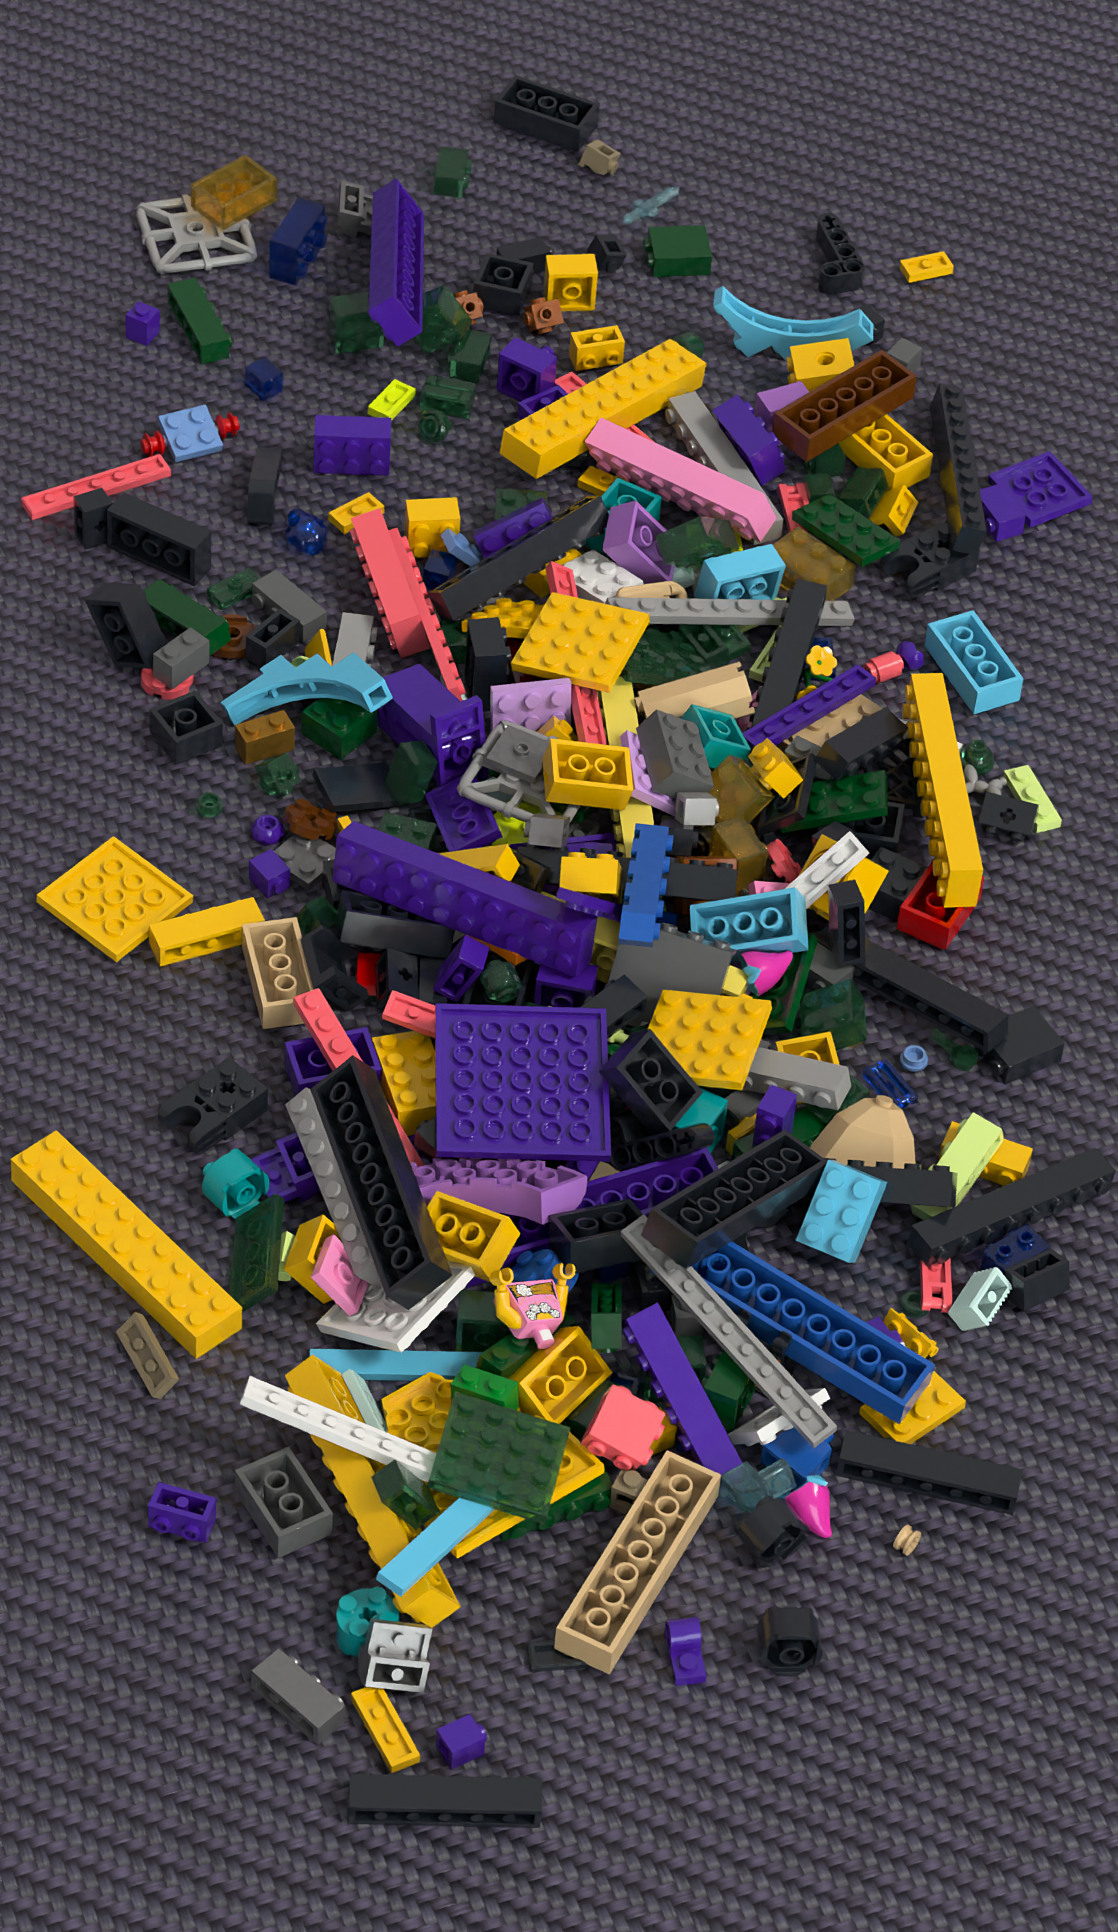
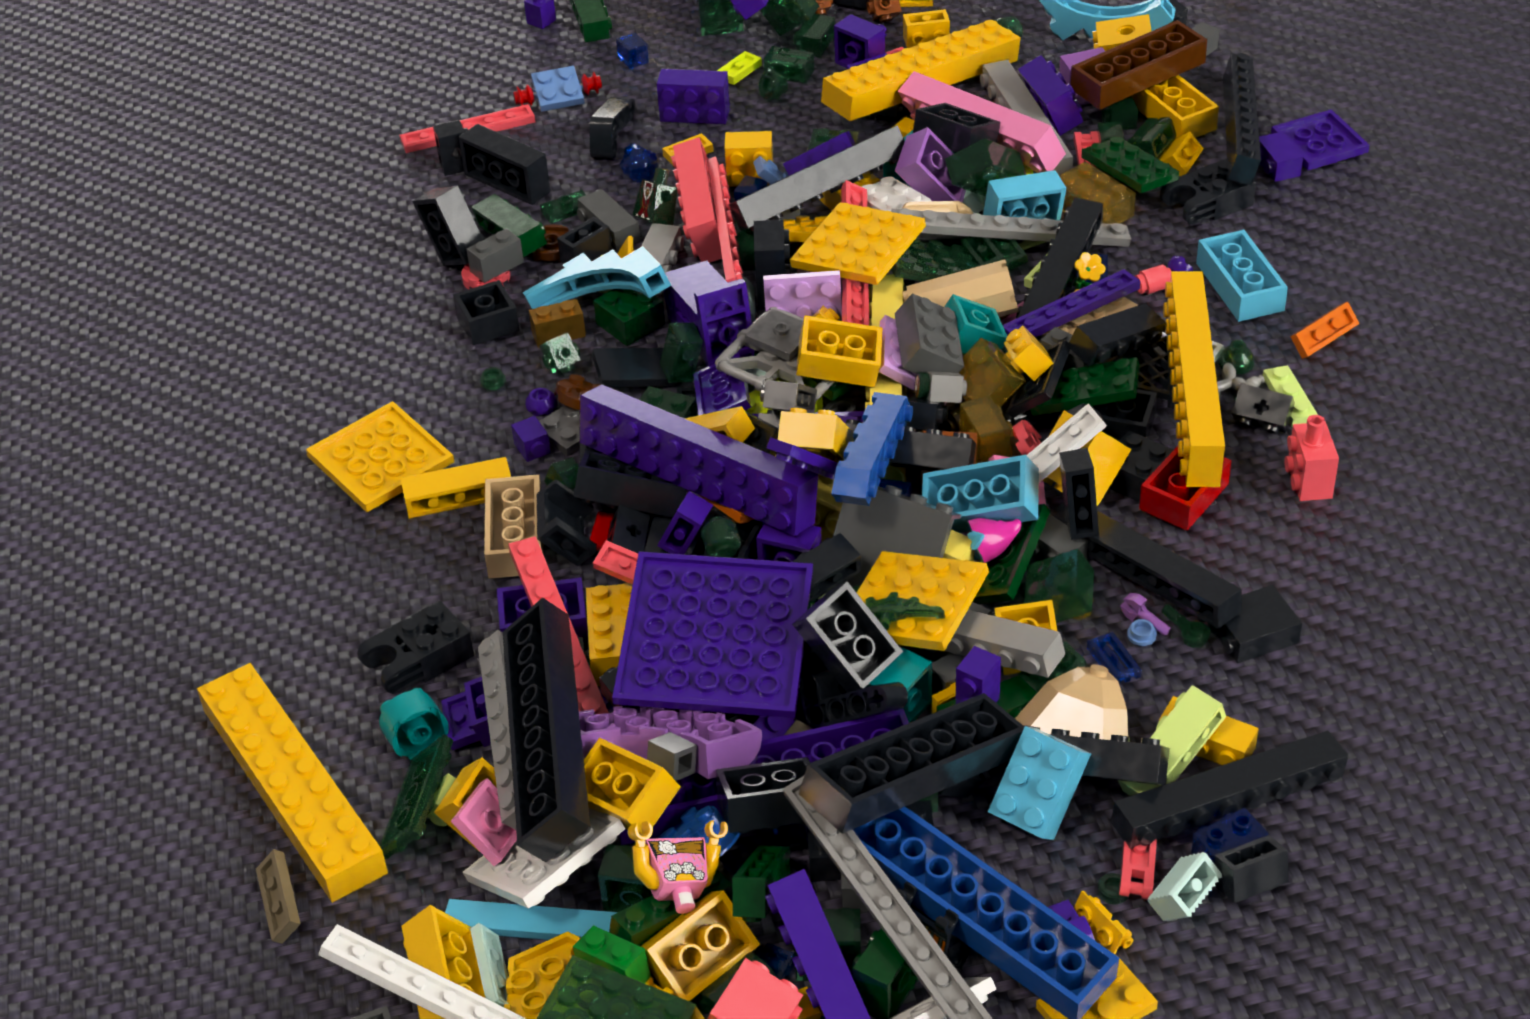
camera: 15 degrees right, 5 degrees down
(343, 584) = (656, 199): none -> clear green torso
(508, 1202) = (673, 754): none -> dark grey brick
(662, 494) = (956, 126): none -> black brick
(673, 807) = (922, 385): none -> clear green tile
(690, 1050) = (896, 608): none -> clear green piece
(905, 1033) = (1134, 608): none -> medium lavender bar
(1061, 723) = (1324, 330): none -> orange plate
(1061, 873) = (1312, 460): none -> coral brick

